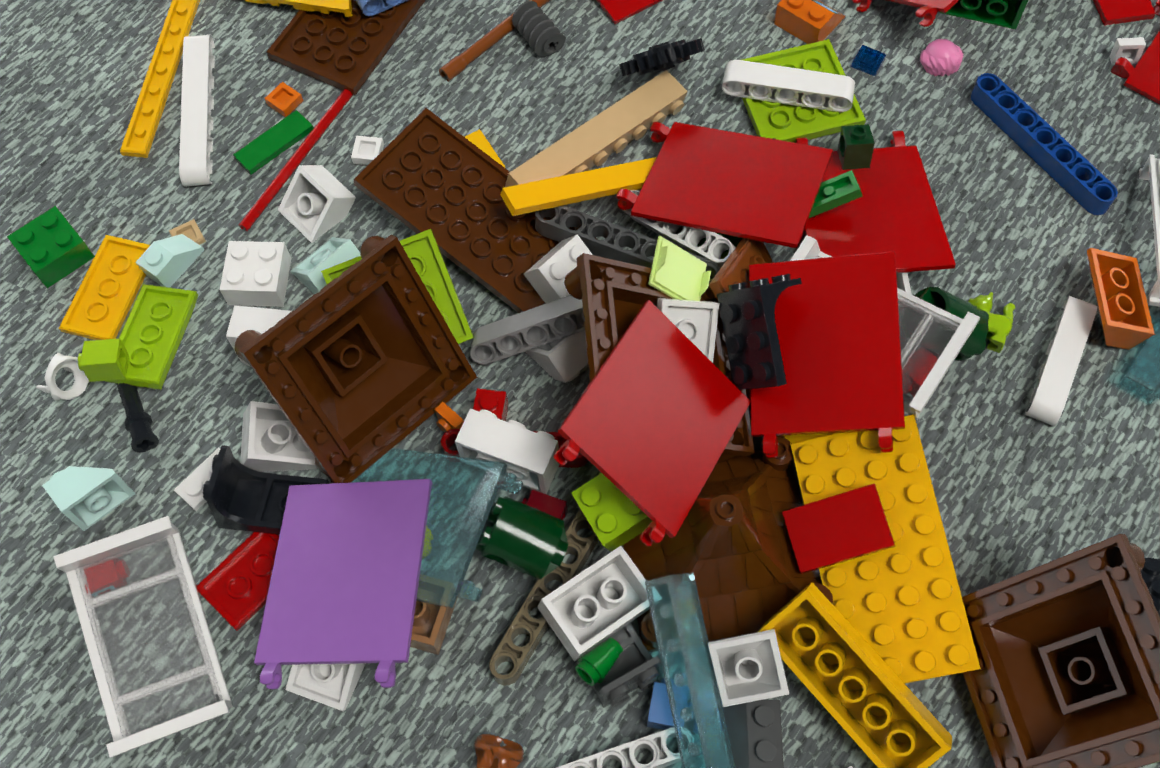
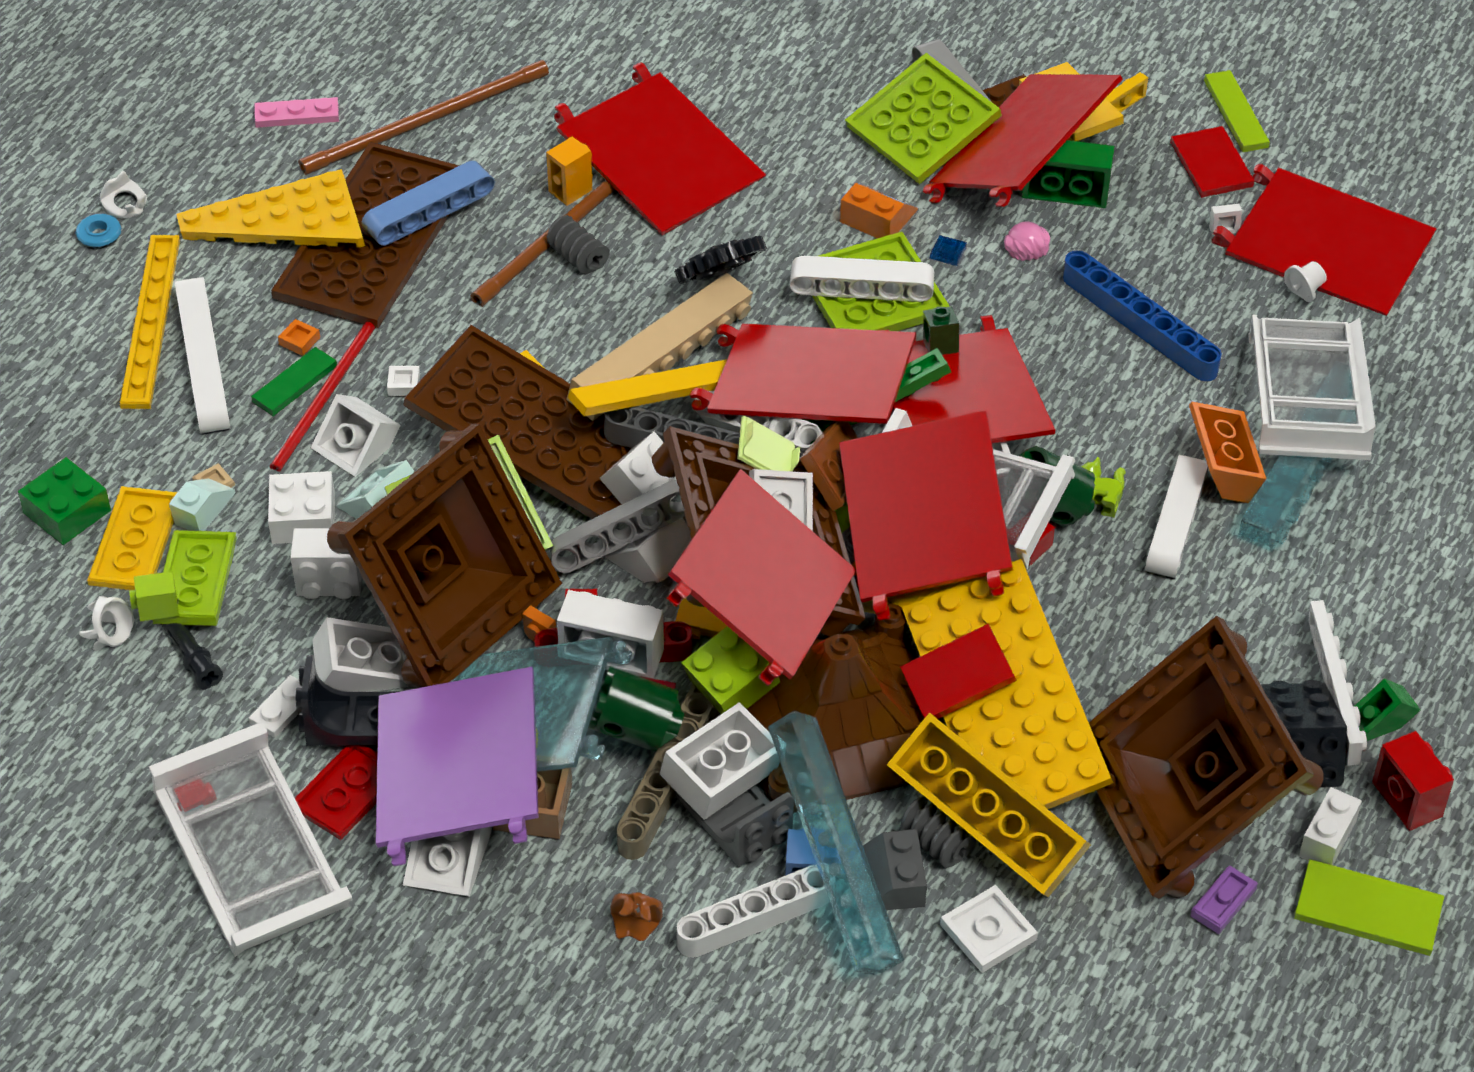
camera: 10 degrees left, 15 degrees down
(87, 493) = (161, 721): light aqua slope -> none
(597, 662) = (723, 819): green cone -> none
(748, 668) = (881, 796): white slope -> none
(752, 331) = (849, 495): black bracket -> none
(803, 703) = (935, 835): none -> dark grey piece

